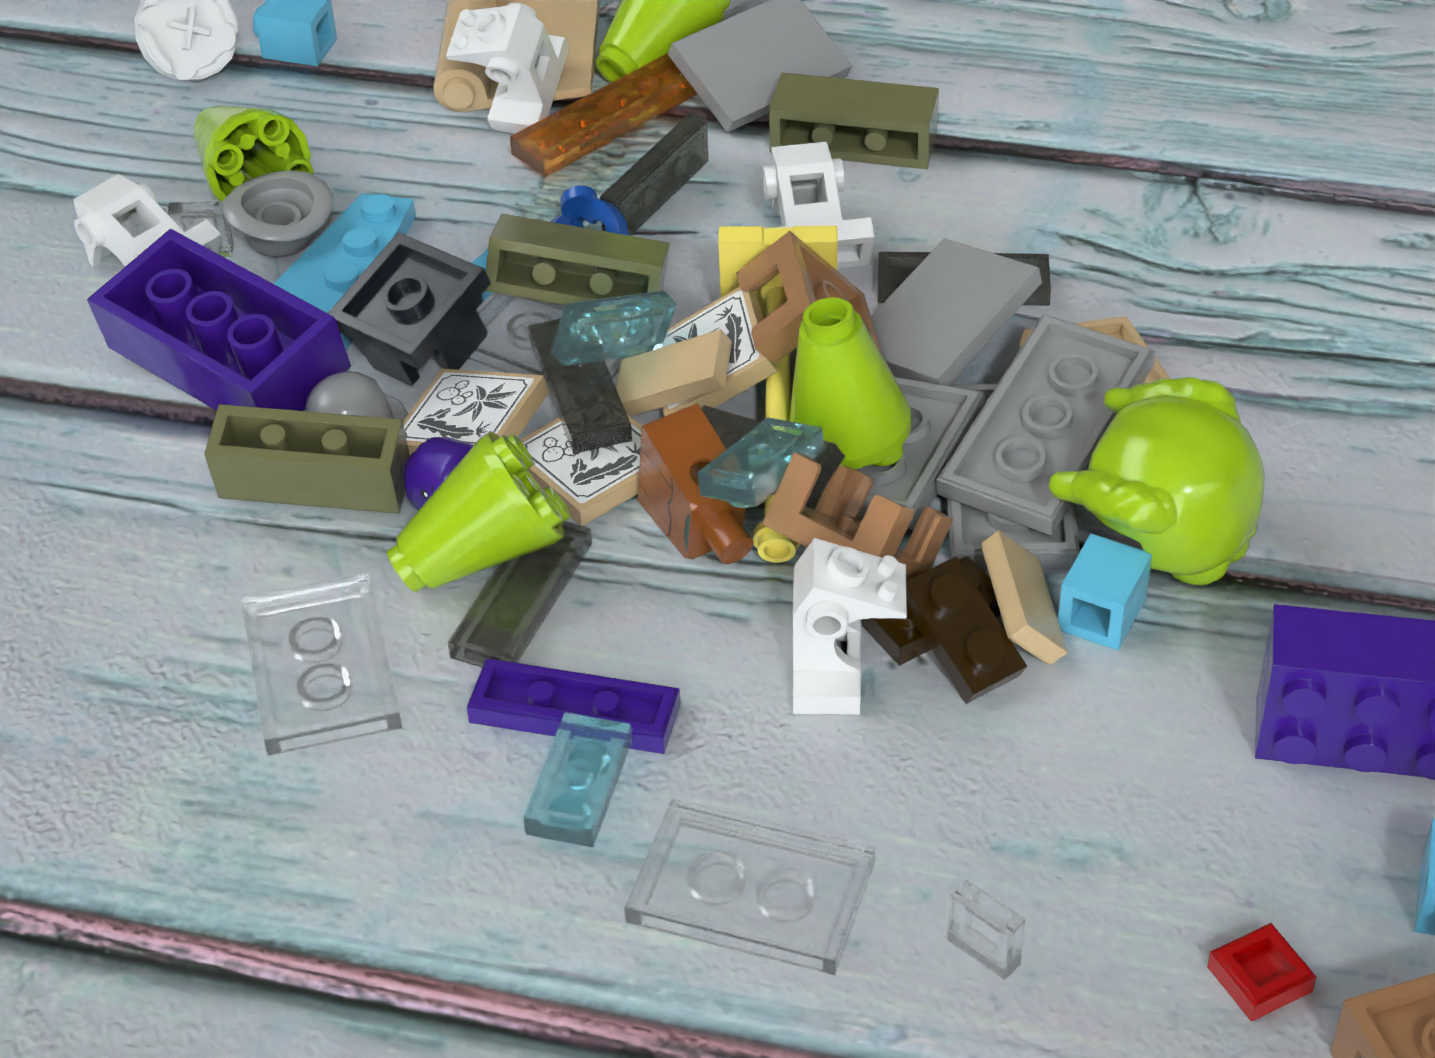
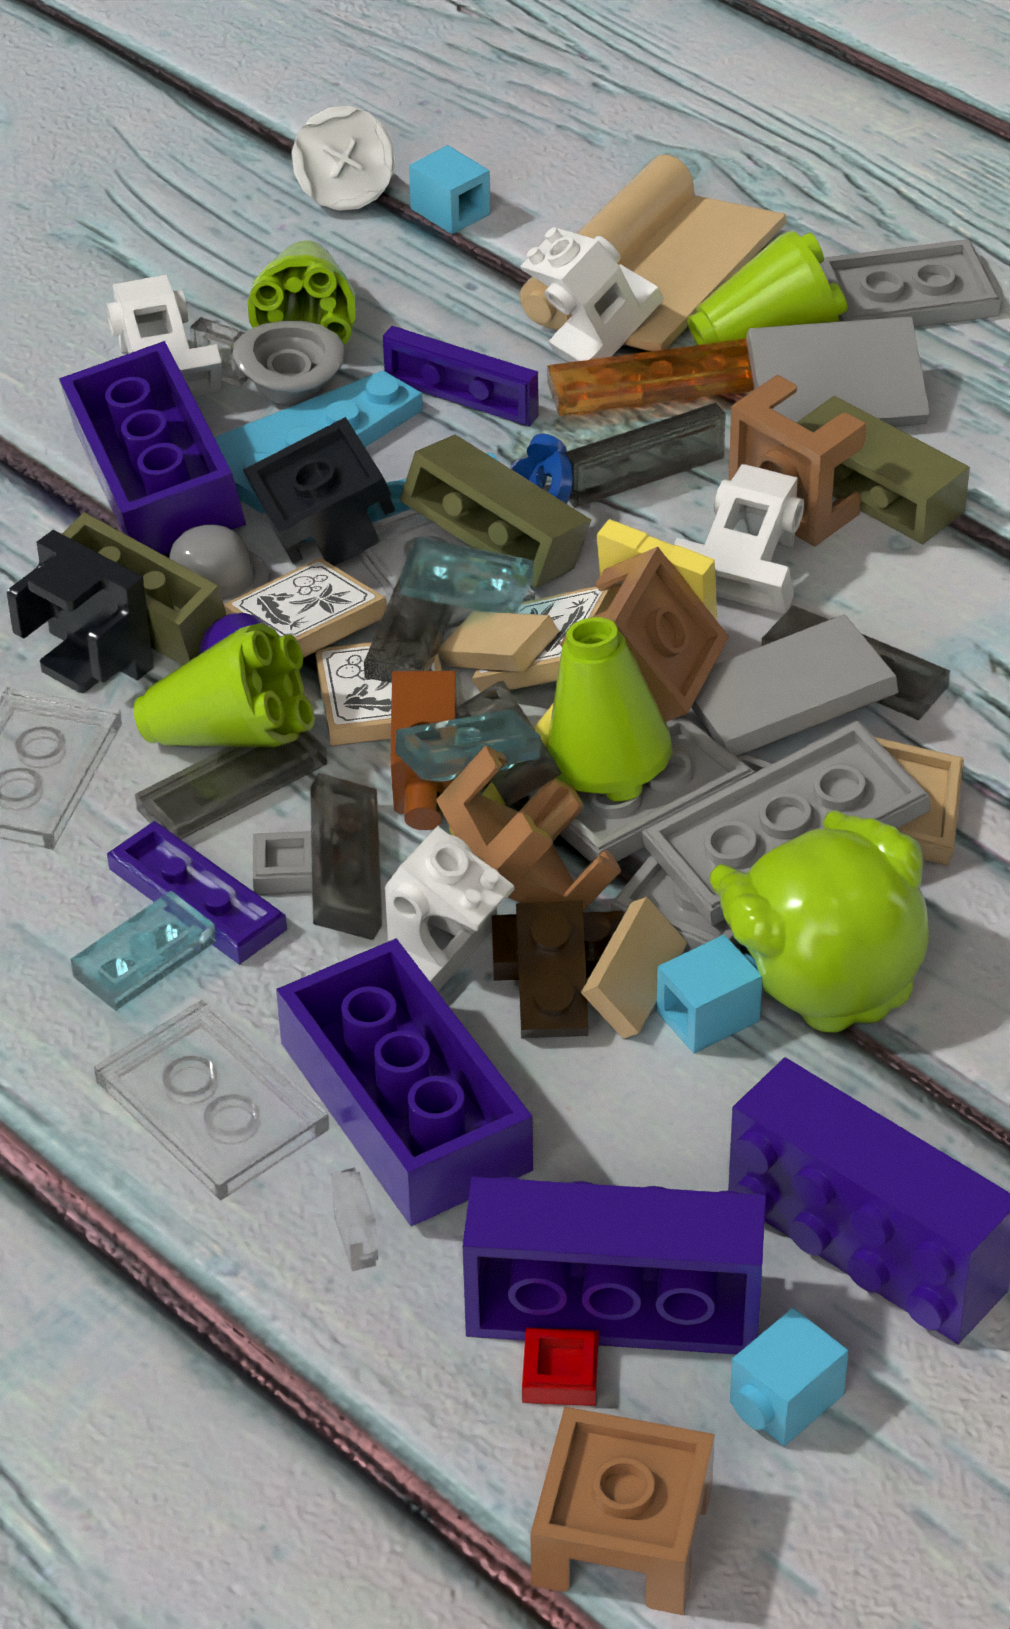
camera: 30 degrees right, 0 degrees up
(284, 493) = (88, 605): none -> black panel
(440, 170) = (462, 375): none -> dark purple tile
(634, 643) = (282, 863): none -> light grey tile
(690, 614) = (345, 857): none -> clear smoke tile
(785, 119) = (780, 445): none -> medium nougat panel
(930, 782) = (404, 1080): none -> dark purple brick
(1260, 853) = (614, 1259): none -> dark purple brick

